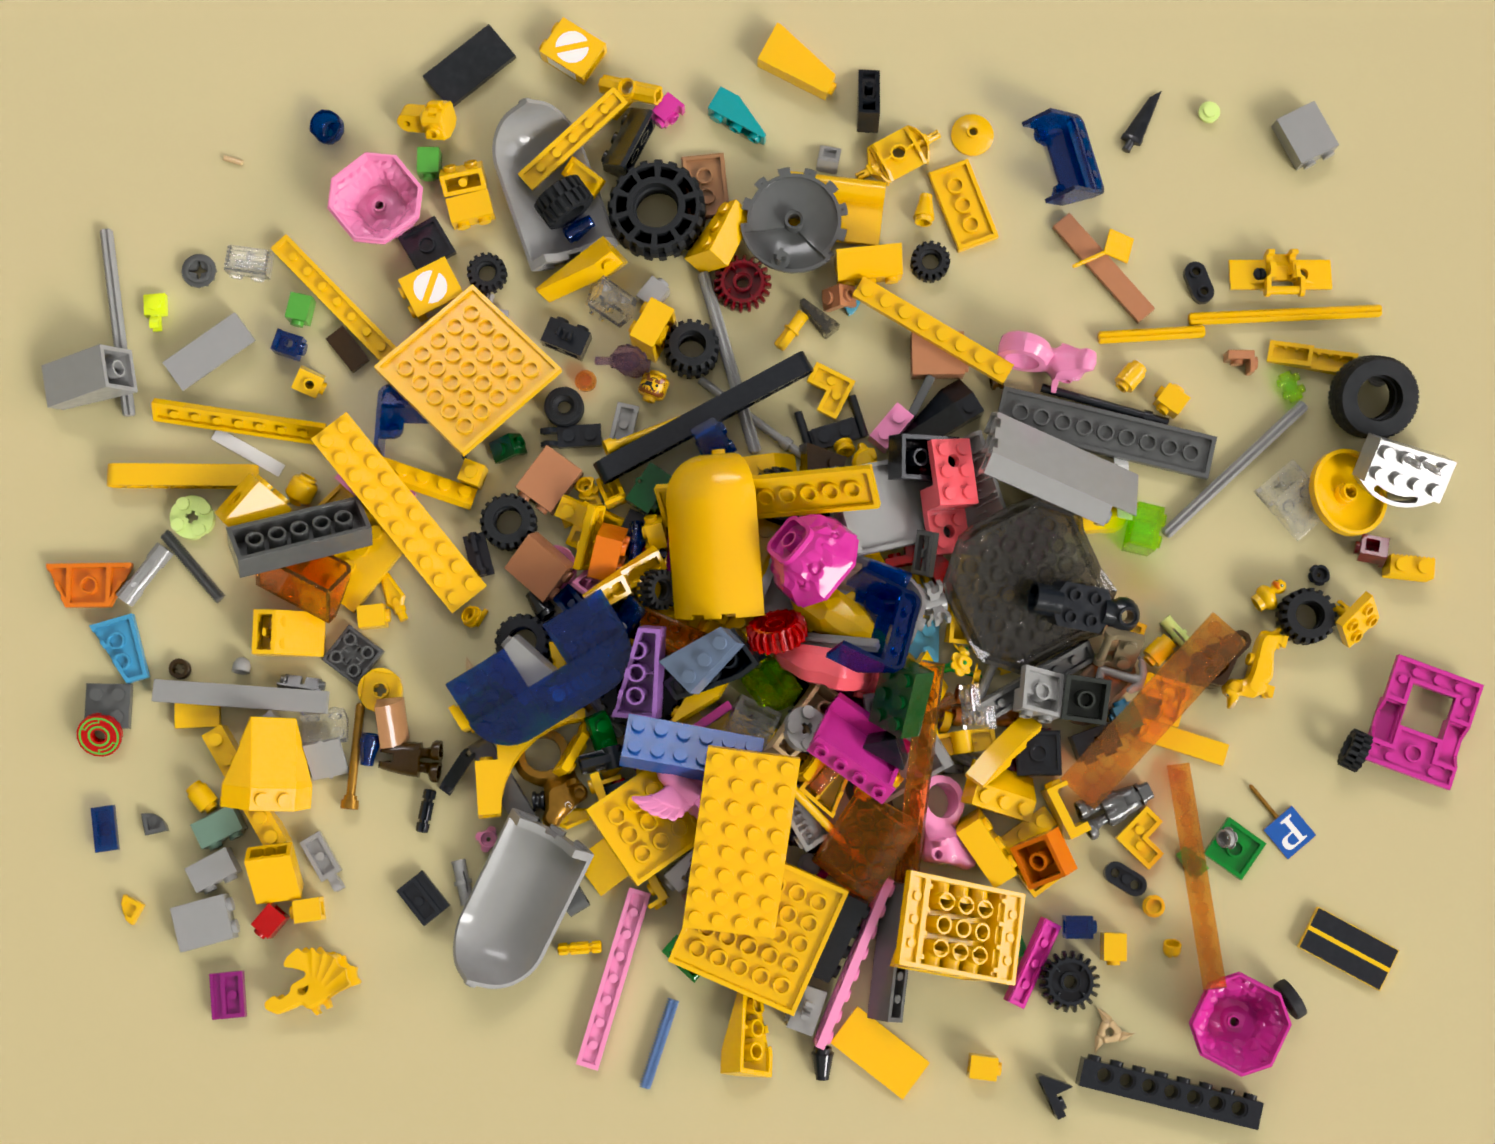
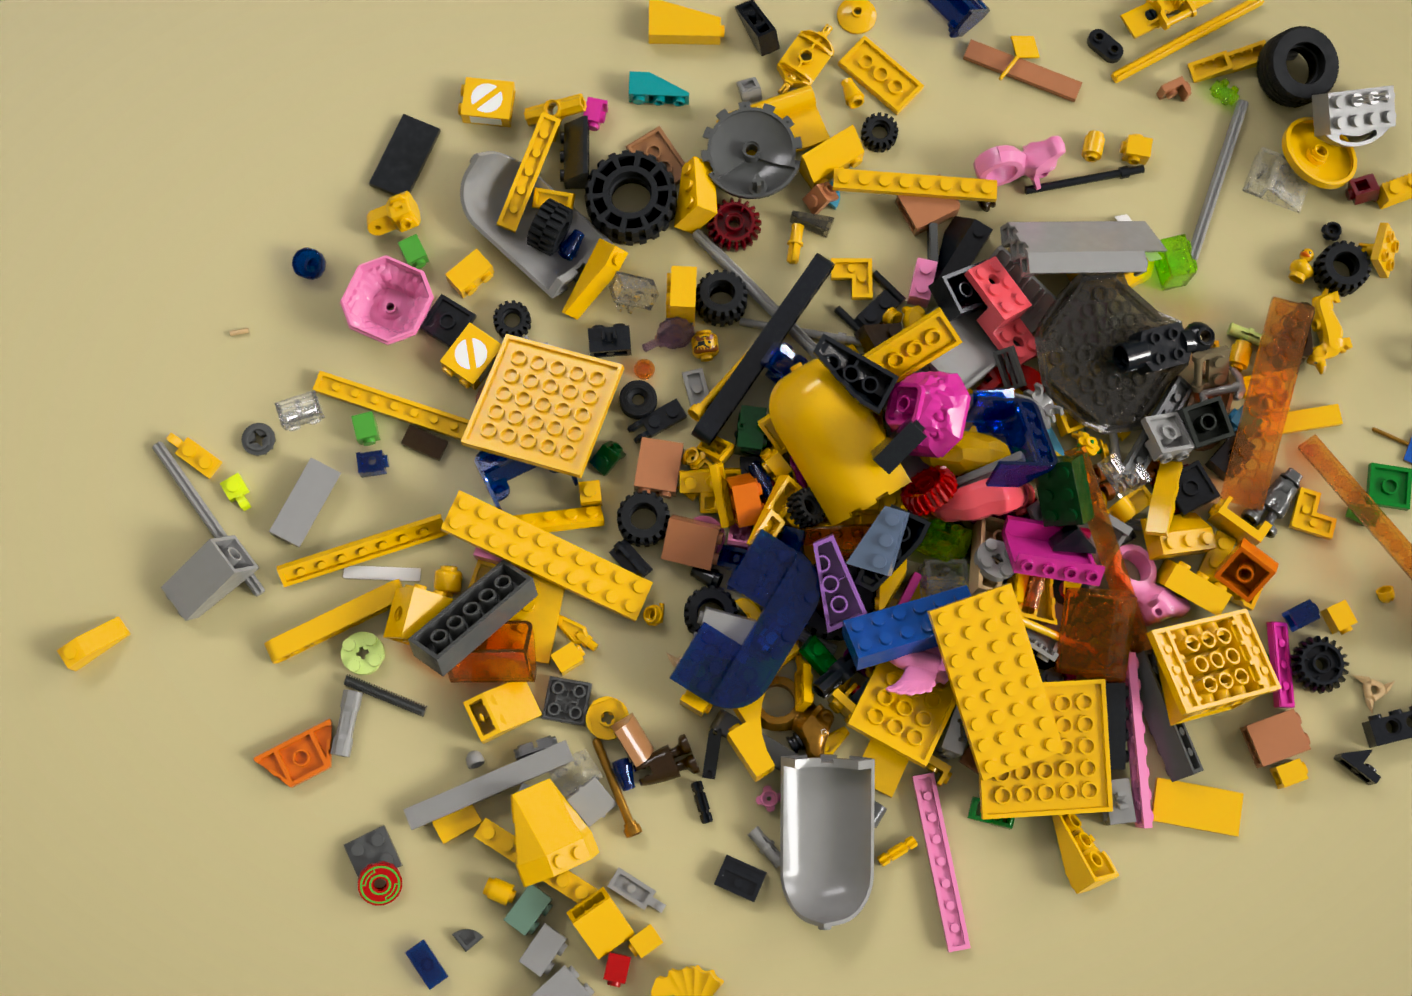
camera: 30 degrees left, 5 degrees down
(123, 644) = (360, 795): dark azure wing -> none
(135, 257) = (195, 455): none -> yellow plate
(187, 670) = (422, 796): dark brown bush -> none
(301, 384) = (399, 485): yellow brick -> none
(463, 178) = (450, 250): yellow brick -> none
(653, 288) = (661, 267): light grey brick -> none
(659, 1043) = (1008, 897): medium blue axle -> none
(760, 577) = (898, 445): none -> black slope
(762, 494) = (859, 376): none -> black wedge
(822, 1062) = (1154, 839): black cone -> none
(989, 1028) = (1276, 738): none -> nougat brick
(1113, 433) = (1107, 197): dark grey plate -> none
(1124, 878) = (1315, 556): black plate -> none
(1151, 334) = (1090, 105): yellow axle -> none
(1153, 906) = (1351, 567): yellow plate -> none
(1222, 838) = (1377, 483): light grey plate -> none

